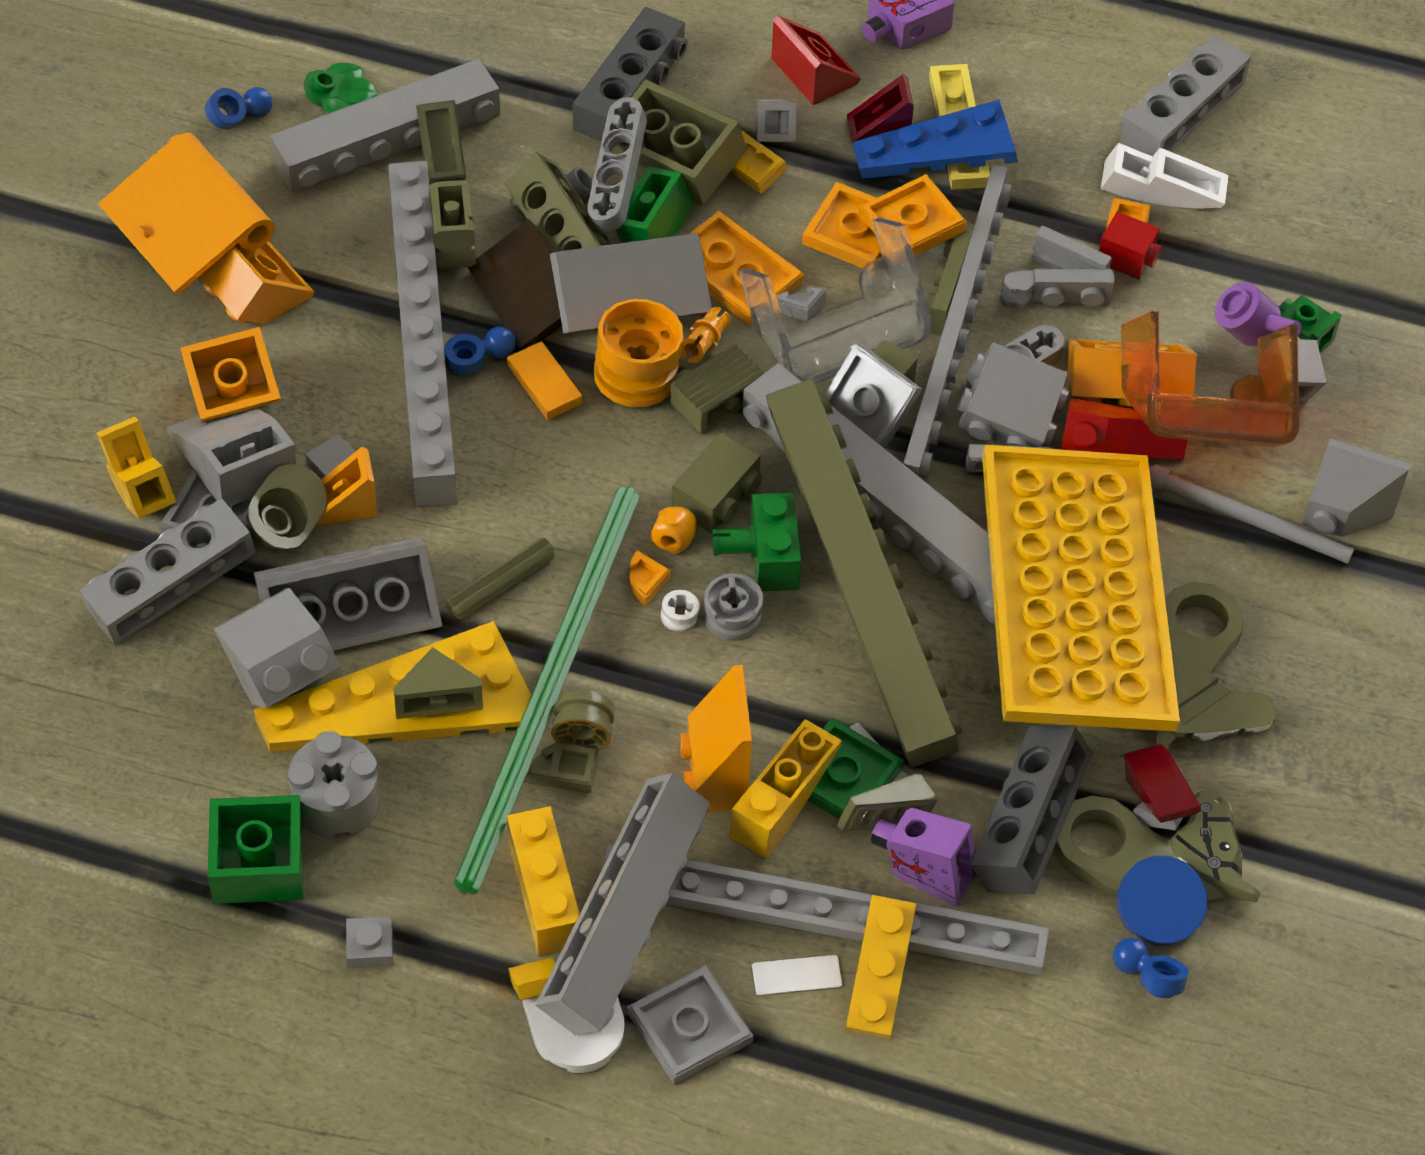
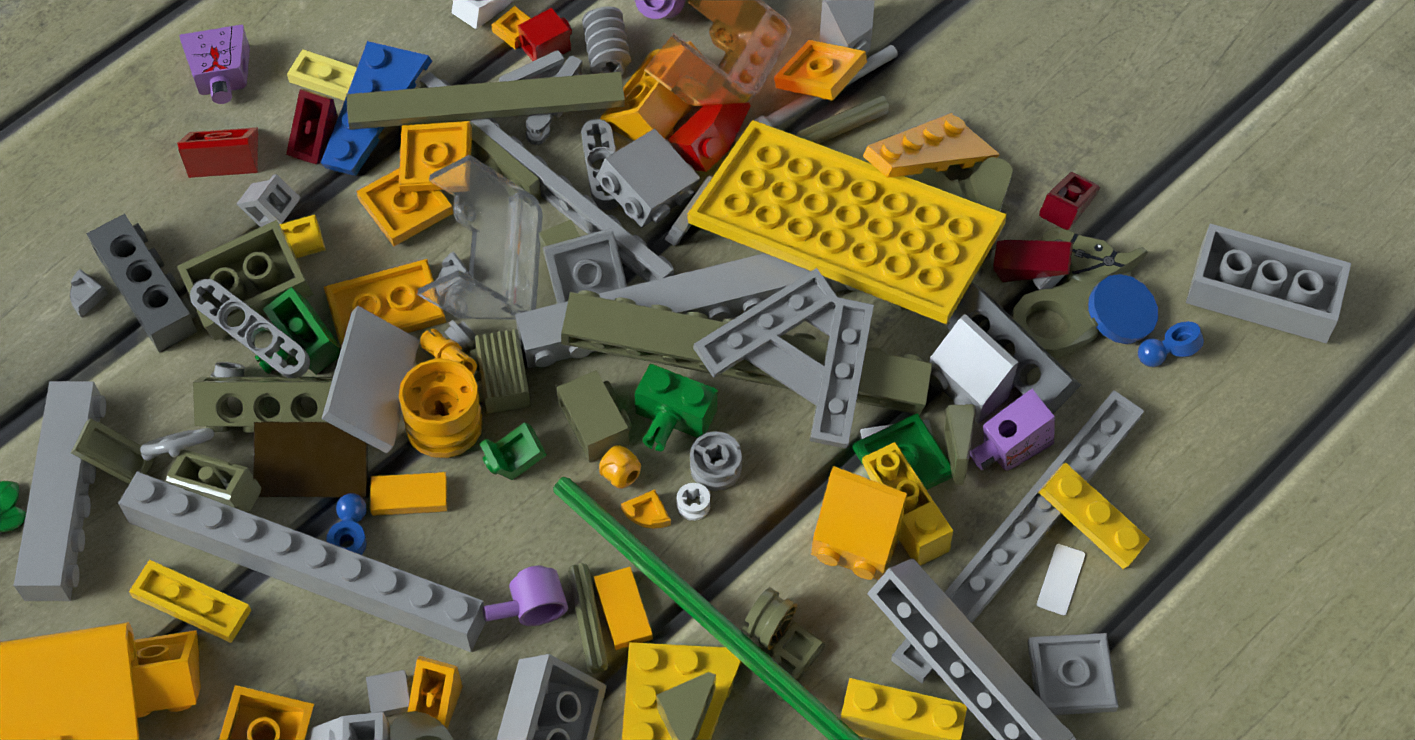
camera: 60 degrees left, 5 degrees up
(336, 271) = (190, 601): none -> yellow plate
(477, 176) = (174, 442): none -> light grey piece
(490, 523) = (535, 596): none -> medium lavender piece
(529, 602) = (623, 608): none -> light orange tile
(595, 45) = (85, 292): none -> light grey tile
(631, 437) = (513, 453): none -> green bracket
(735, 333) = (461, 334): none -> light grey plate
(860, 648) = (757, 339): none -> light grey plate
(977, 776) = (972, 368): none -> slope
(1005, 227) = (485, 100): none -> olive tile
(1163, 291) = (606, 40): none -> light grey piece
(1221, 548) = (846, 120): none -> olive axle
(1243, 636) = (929, 146): none -> light orange wing
(1264, 493) = (820, 69): none -> light orange plate
(1270, 795) = (1068, 200): none -> dark red slope
(1291, 1029) = (1269, 283): none -> light grey brick

